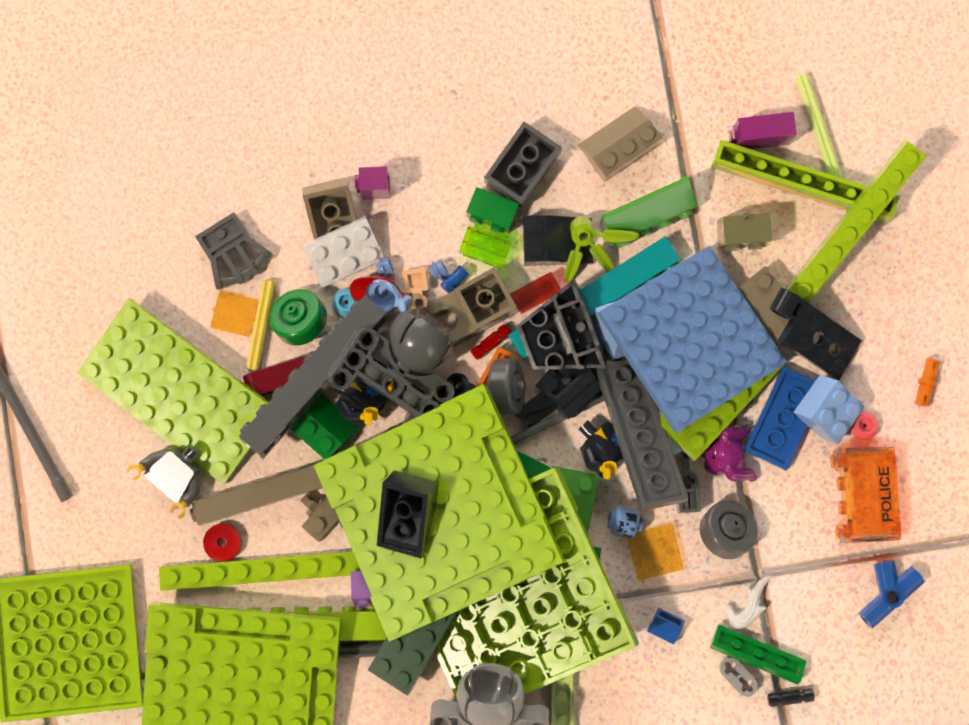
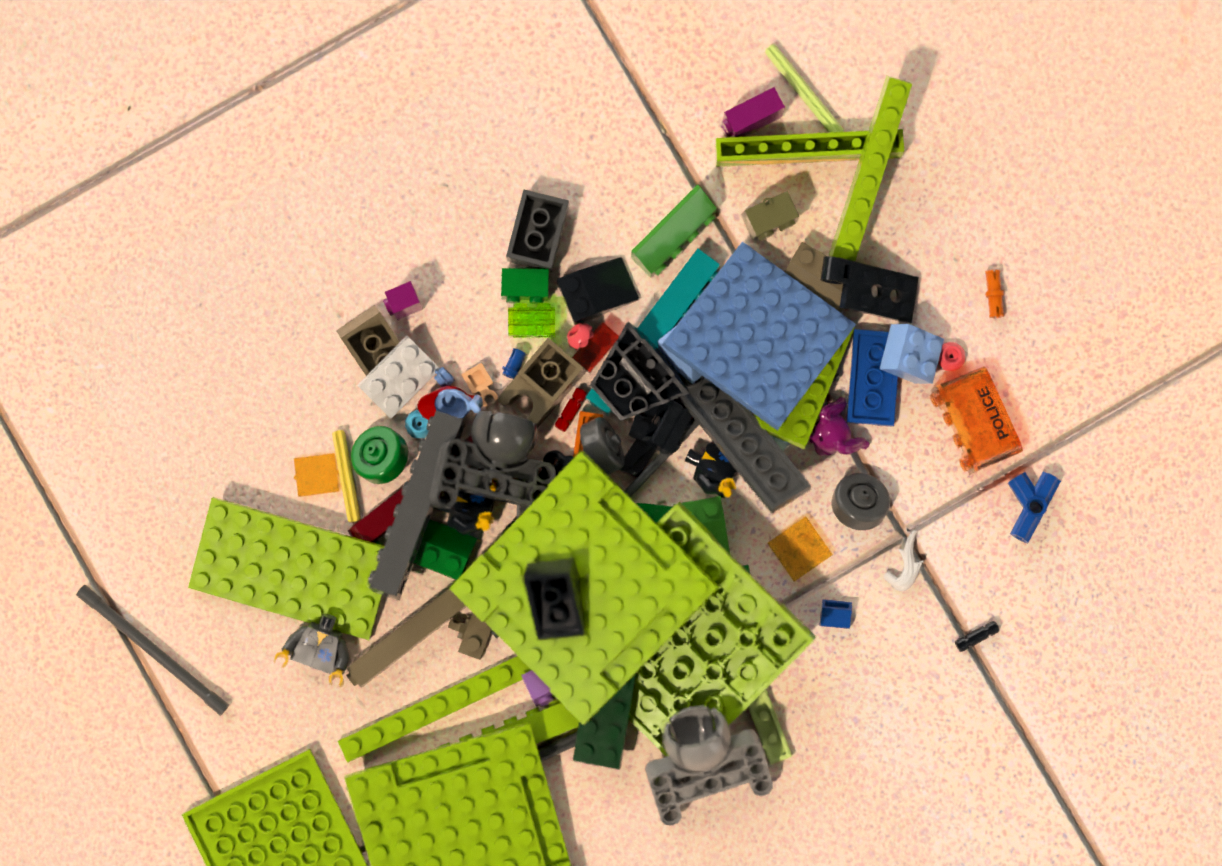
camera: 25 degrees left, 0 degrees up
(212, 546) = (378, 690): red piece -> none
(222, 239) = (280, 405): dark grey plate -> none
(439, 270) = (496, 360): medium blue plate -> none
(524, 276) = (579, 335): none -> coral plate
(583, 235) = (620, 276): lime plant -> none
(620, 143) = (622, 175): dark tan slope -> none
(624, 521) = (761, 531): medium blue head -> none
(692, 490) = (813, 477): dark grey piece -> none
(742, 672) = (923, 630): light grey beam -> none
(758, 654) = (931, 607): green plate -> none

